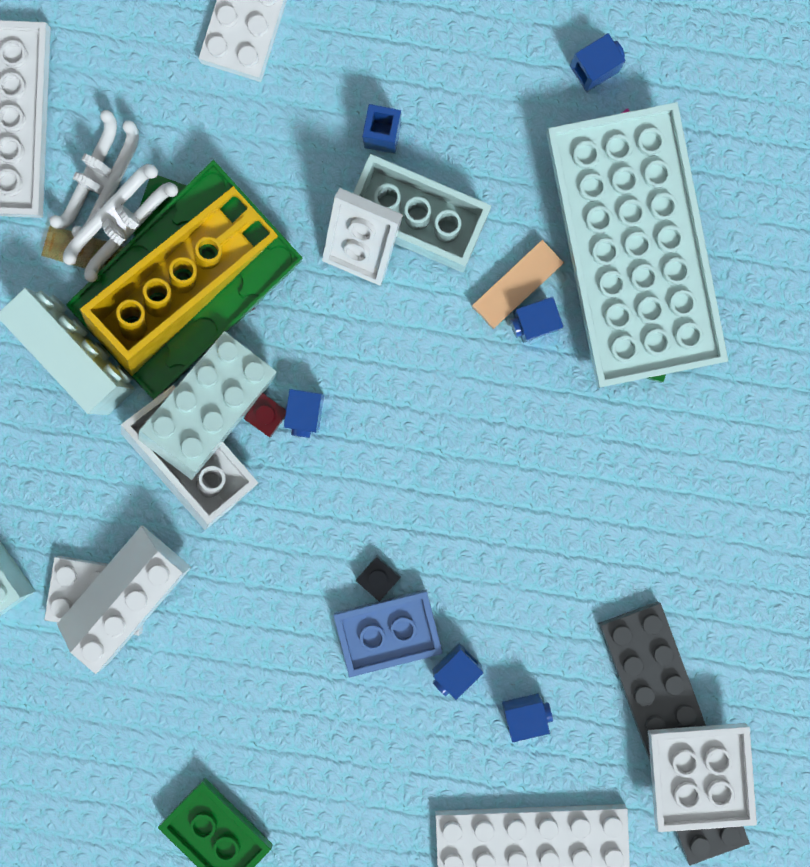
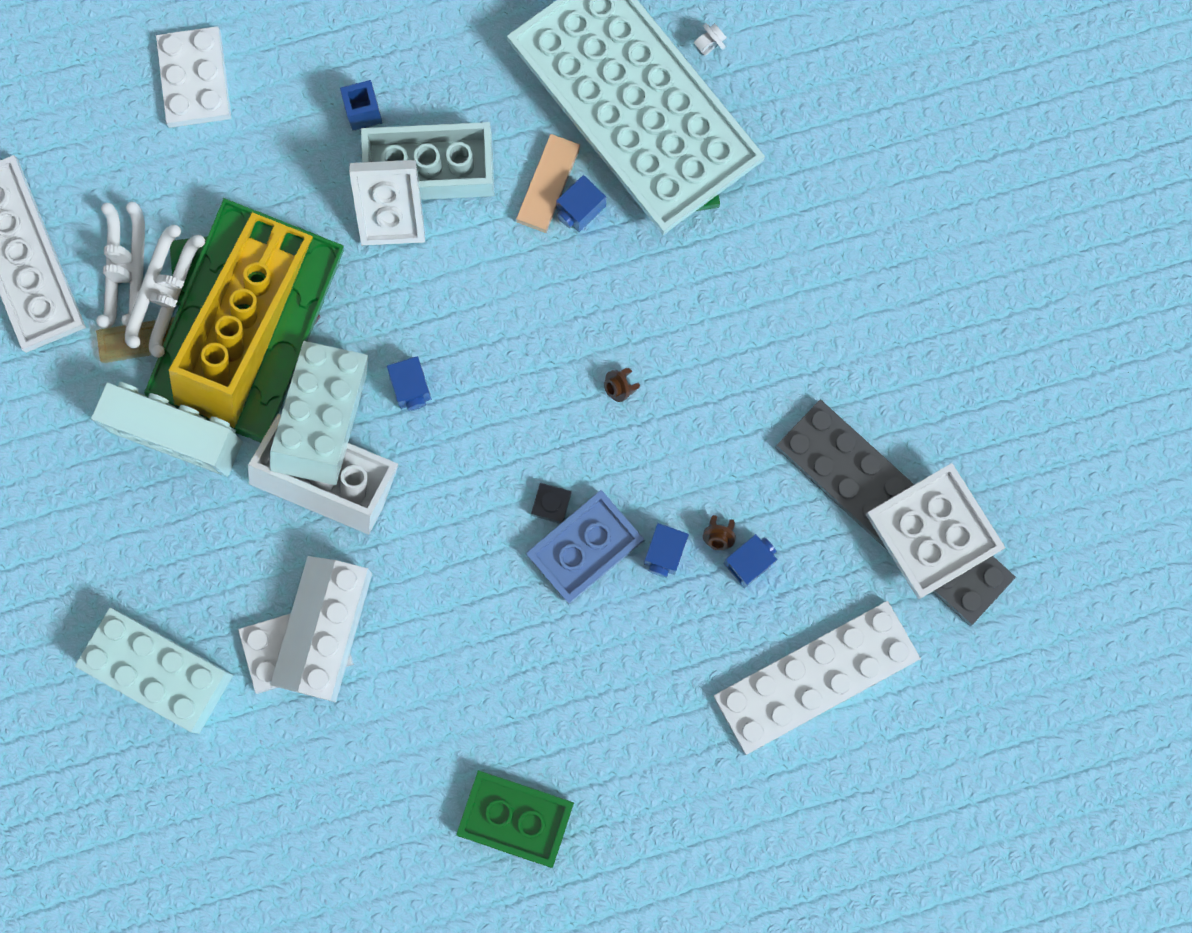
camera: 25 degrees left, 10 degrees down
(266, 415) = (376, 405): dark red plate -> none
(487, 503) = (617, 385): none -> reddish brown plate
(508, 682) = (719, 536): none -> reddish brown plate
(732, 220) = (709, 40): none -> white plate

